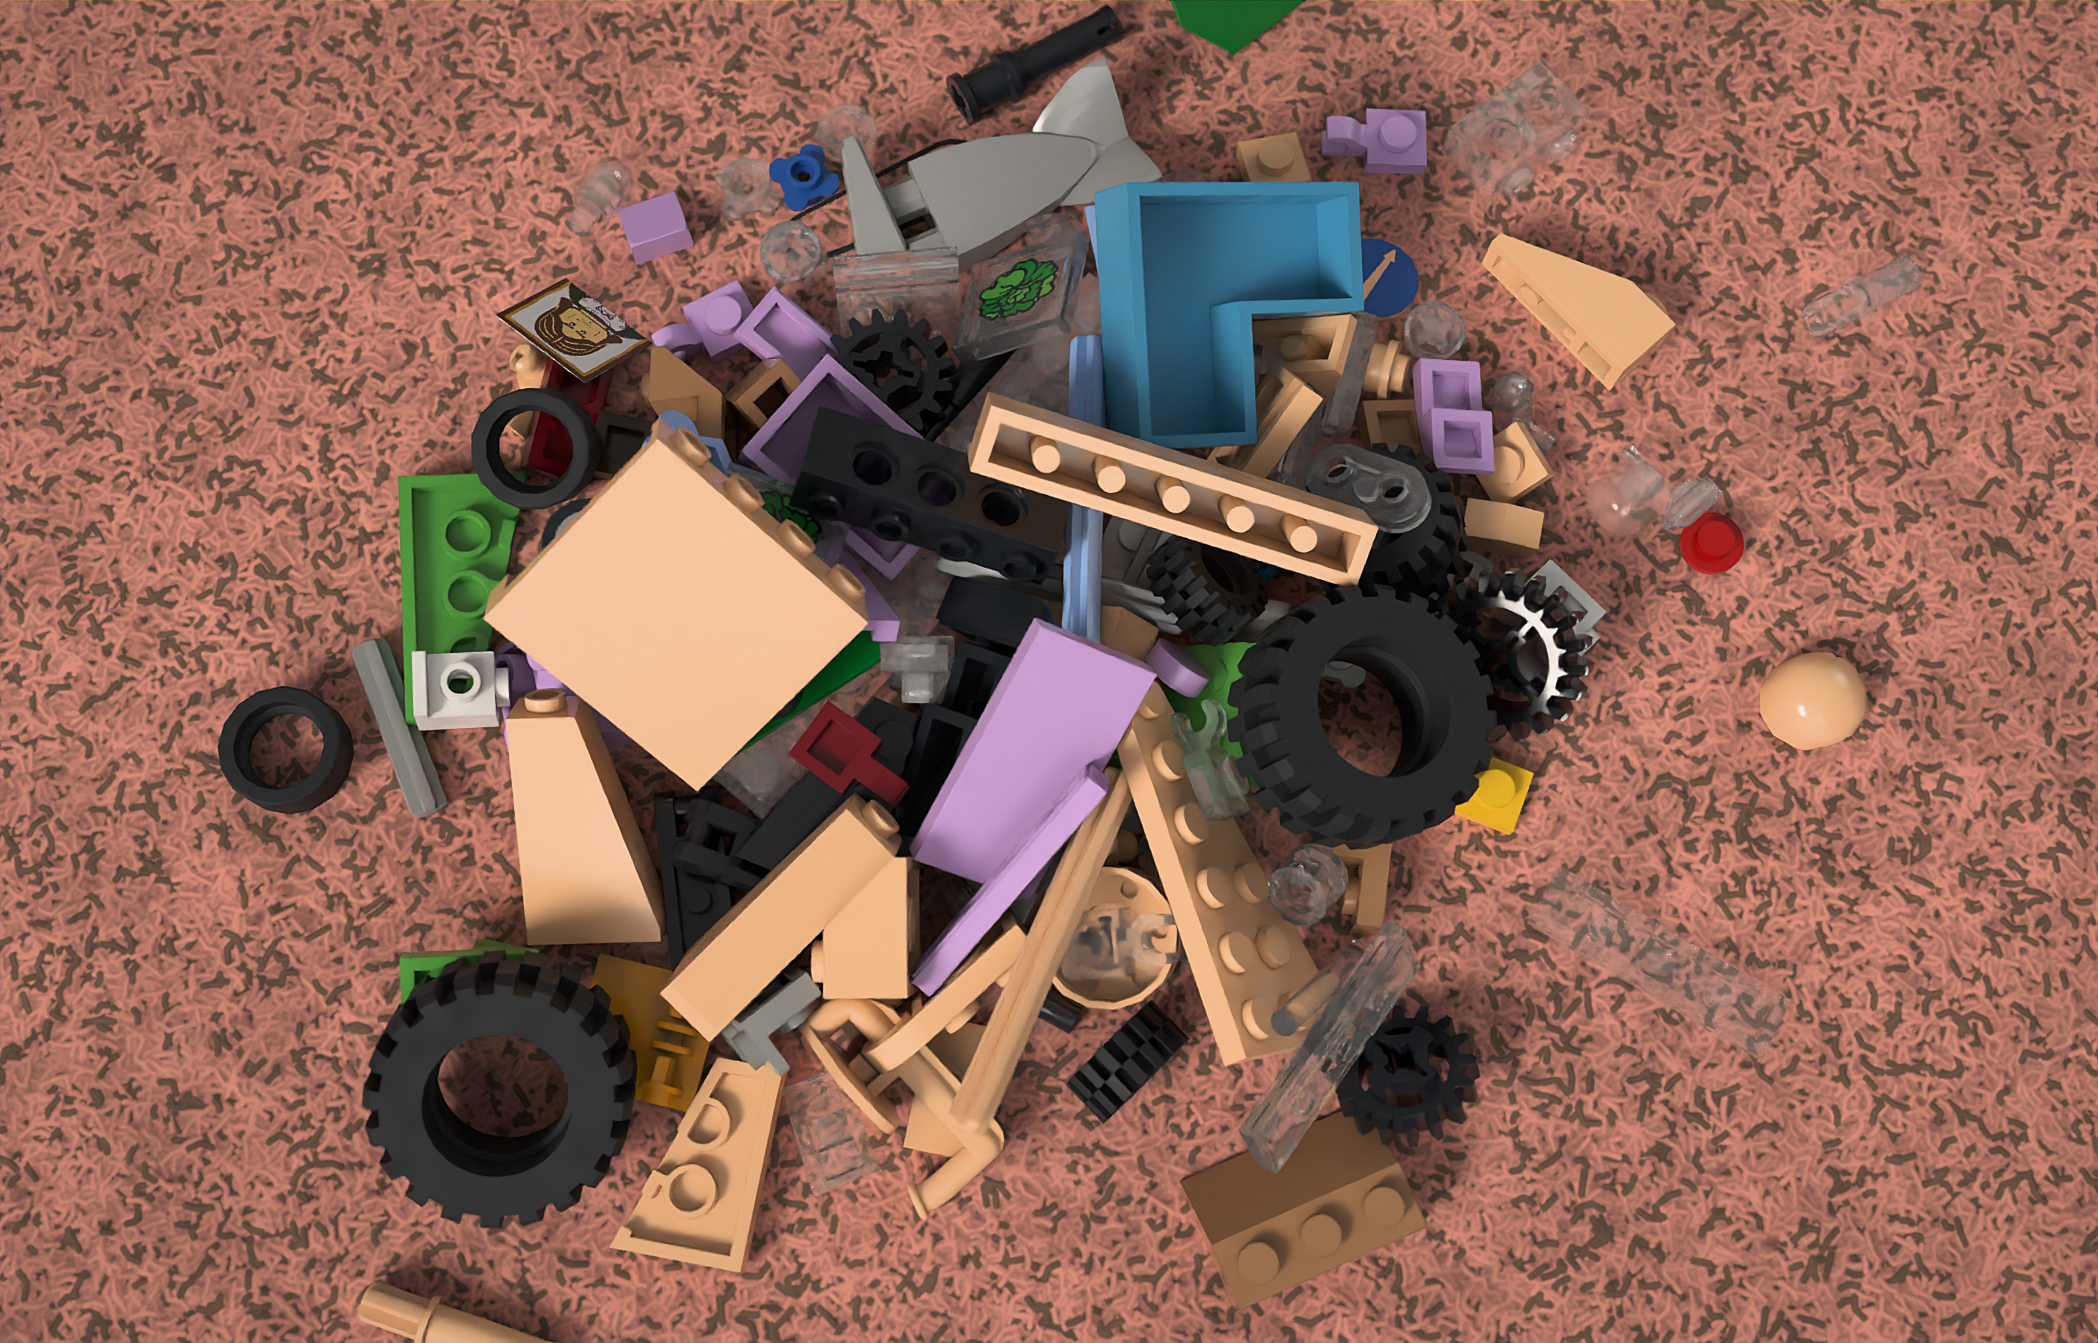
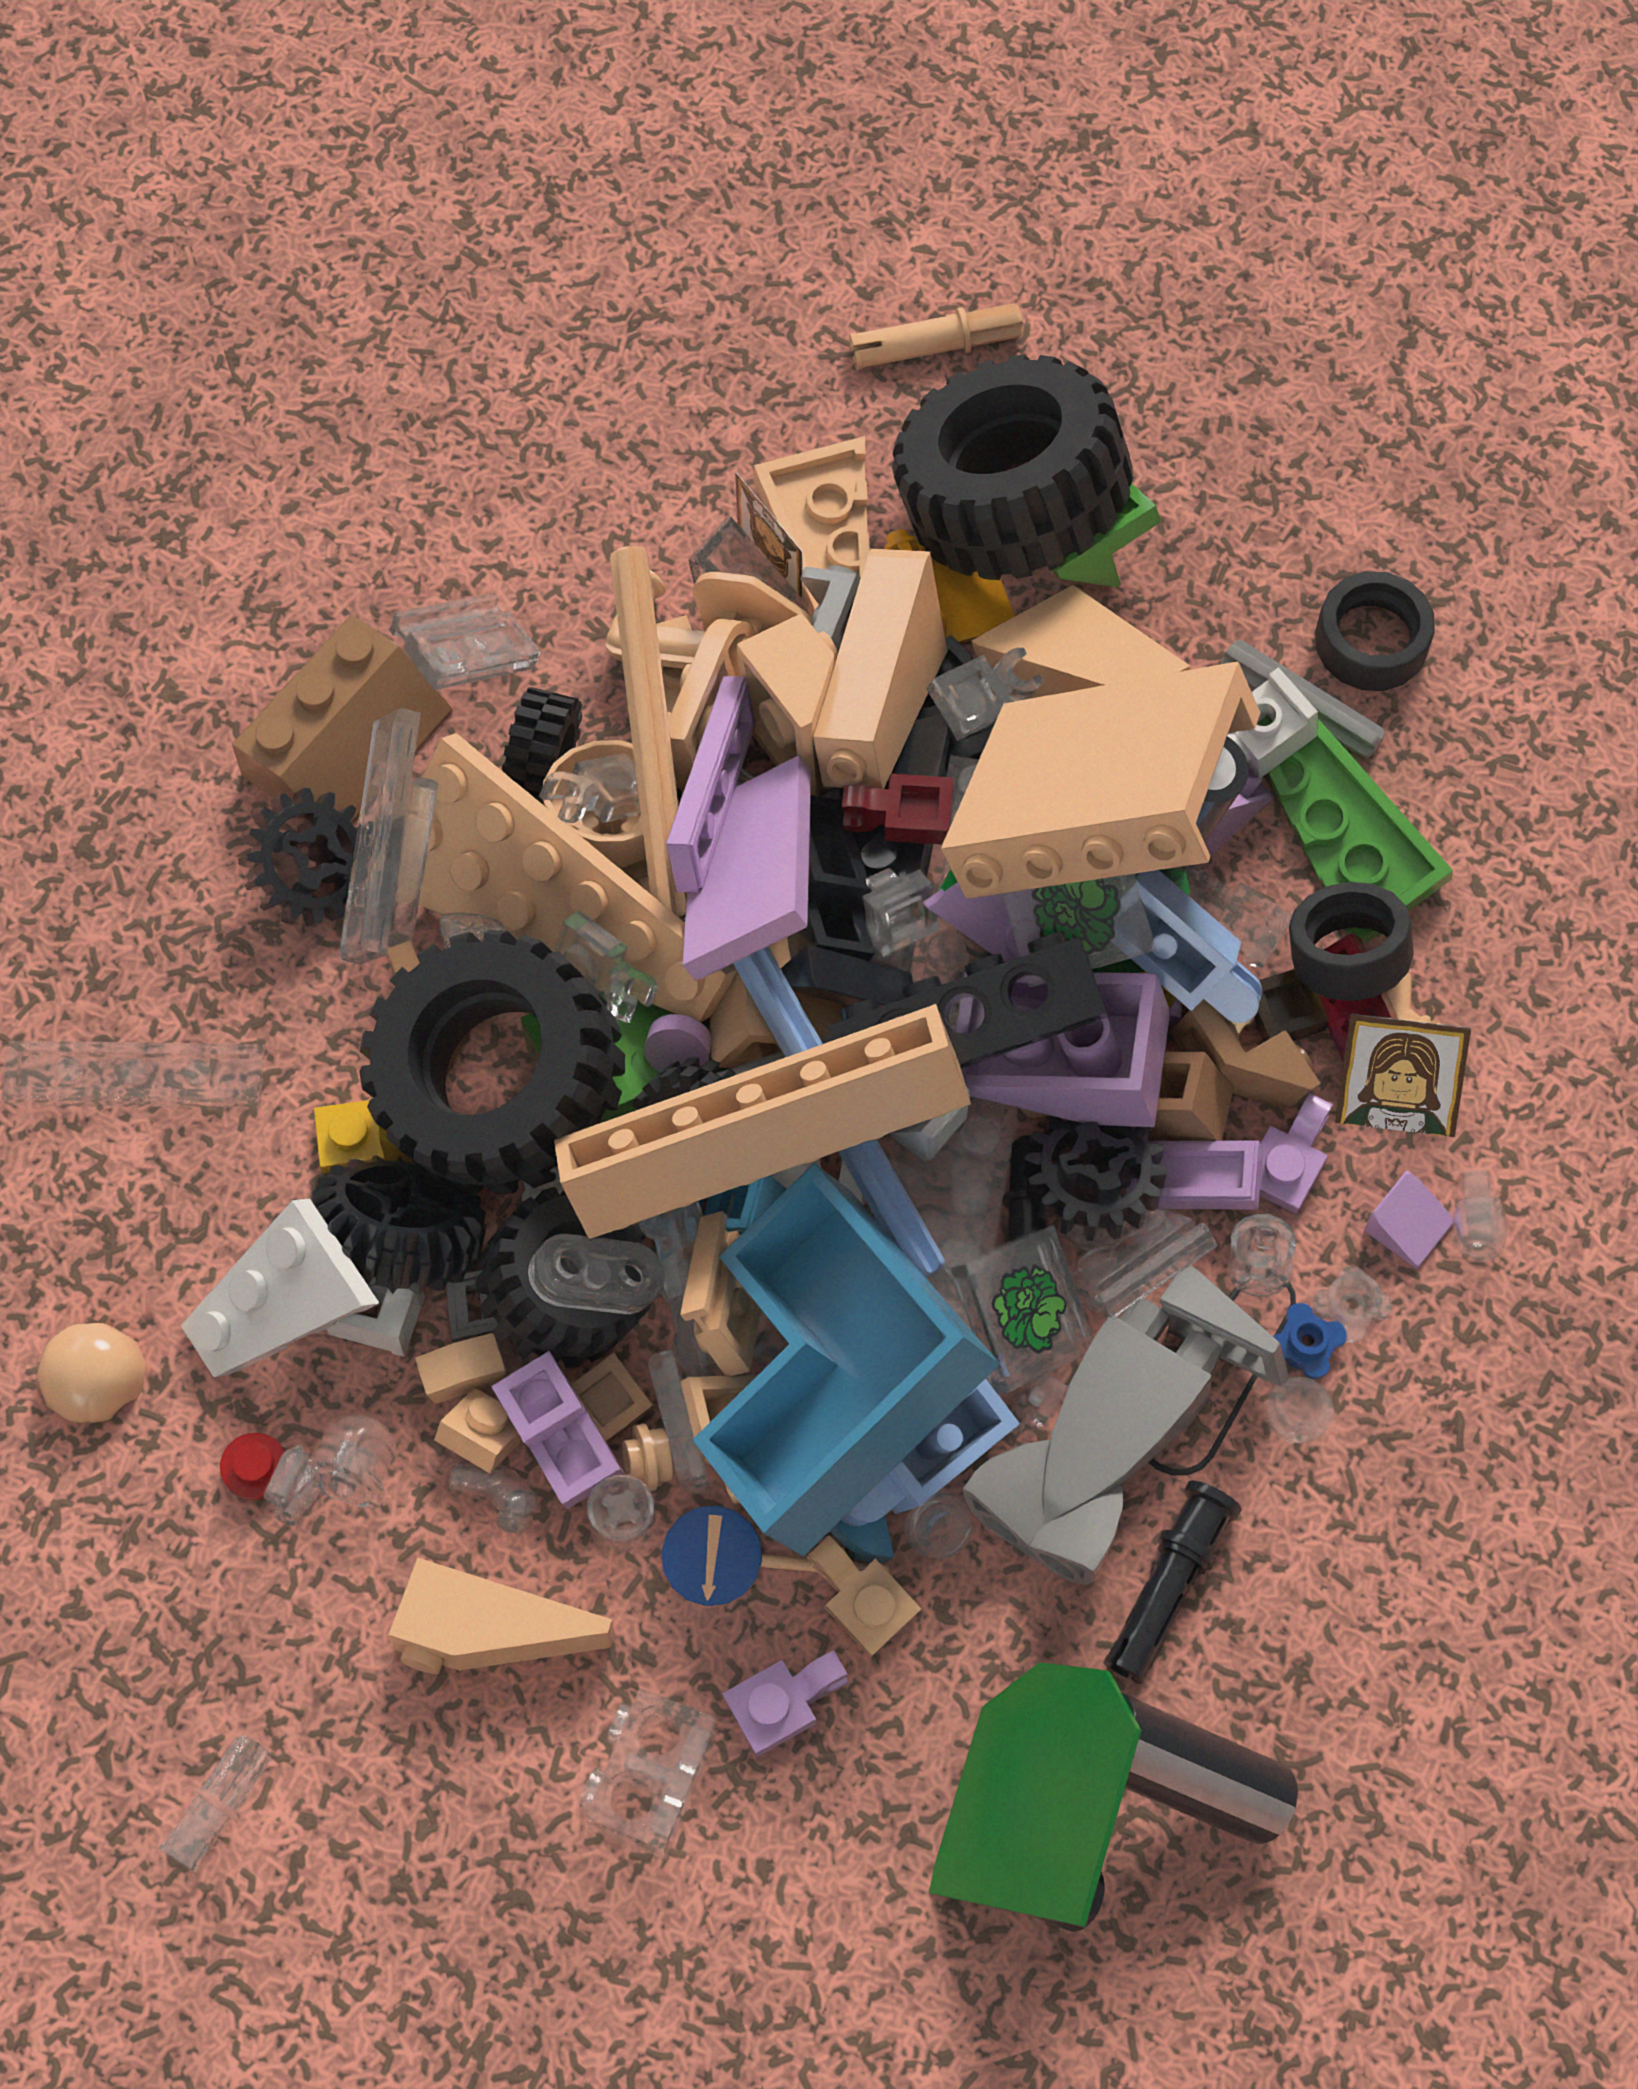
camera: 150 degrees right, 10 degrees down
(704, 848) = (975, 693): none -> clear plate
(782, 1161) = (769, 535): none -> sticker
(1136, 1232) = (464, 641): none -> clear plate
(1636, 640) = (277, 1293): none -> white wing

